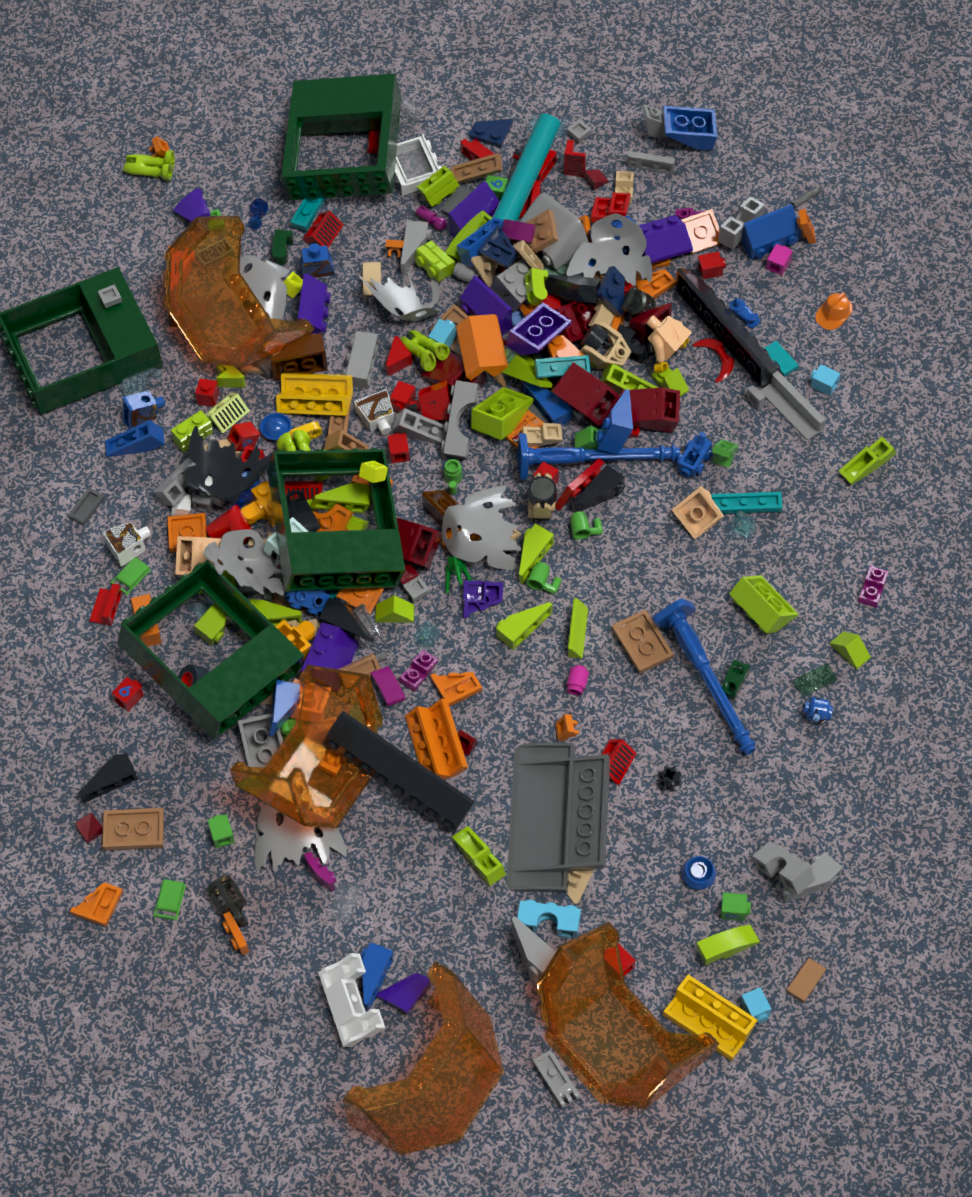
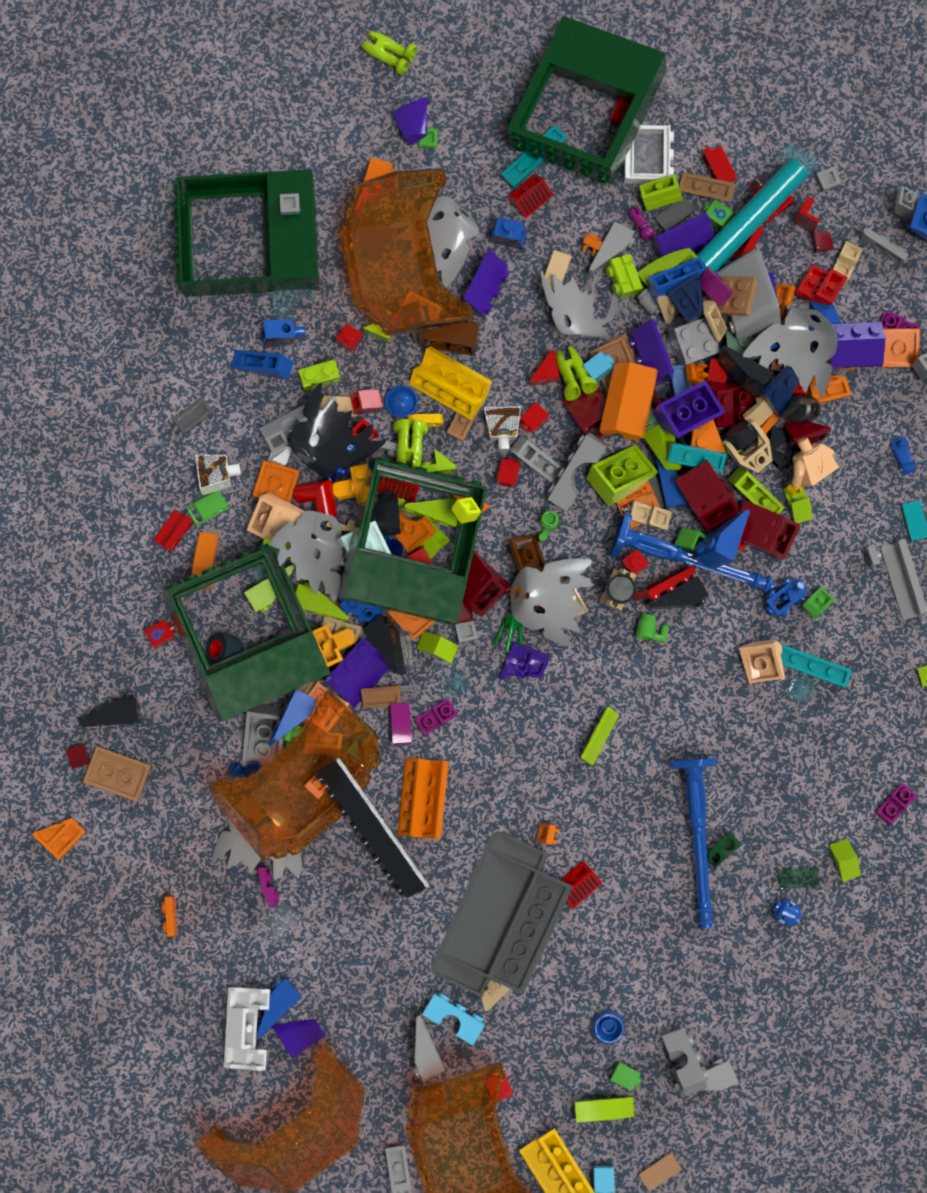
camera: 20 degrees right, 20 degrees up
(159, 147) = (407, 34): orange tile -> none
(170, 898) = (125, 855): bright green piece -> none
(221, 831) = (194, 809): bright green brick -> none
(227, 412) = (361, 365): yellowish green panel -> none
(232, 904) = (179, 890): pearl dark grey piece -> none
(258, 209) = (468, 158): clear blue plate -> none
(281, 240) = (481, 197): dark green leg -> none
(293, 284) = (478, 246): neon yellow slope -> none
(343, 441) = (458, 452): medium nougat slope -> none
(362, 358) = (510, 360): light grey brick -> none
(433, 402) = (559, 439): red torso -> none
(456, 686) = (463, 749): orange wing -> none
(467, 742) = (450, 810): dark red slope -> none
(479, 855) = (416, 929): lime slope -> none
(491, 132) = (741, 144): dark blue wing -> none
(521, 624) = (546, 711): lime slope -> none
(535, 286) = (707, 354): lime leg -> none
(536, 545) = (594, 633): lime slope -> none
(539, 576) = (585, 667): bright green piece -> none
(577, 680) = (577, 789): dark pink brick -> none
(642, 641) = (653, 773): medium nougat plate -> none
(665, 775) = (616, 929): black gear -> none
(711, 265) = (893, 390): red brick -> none
(717, 346) = (860, 482): red piece -> none
(726, 326) = (877, 467): black slope -> none
(763, 603) = (784, 781): lime slope -> none

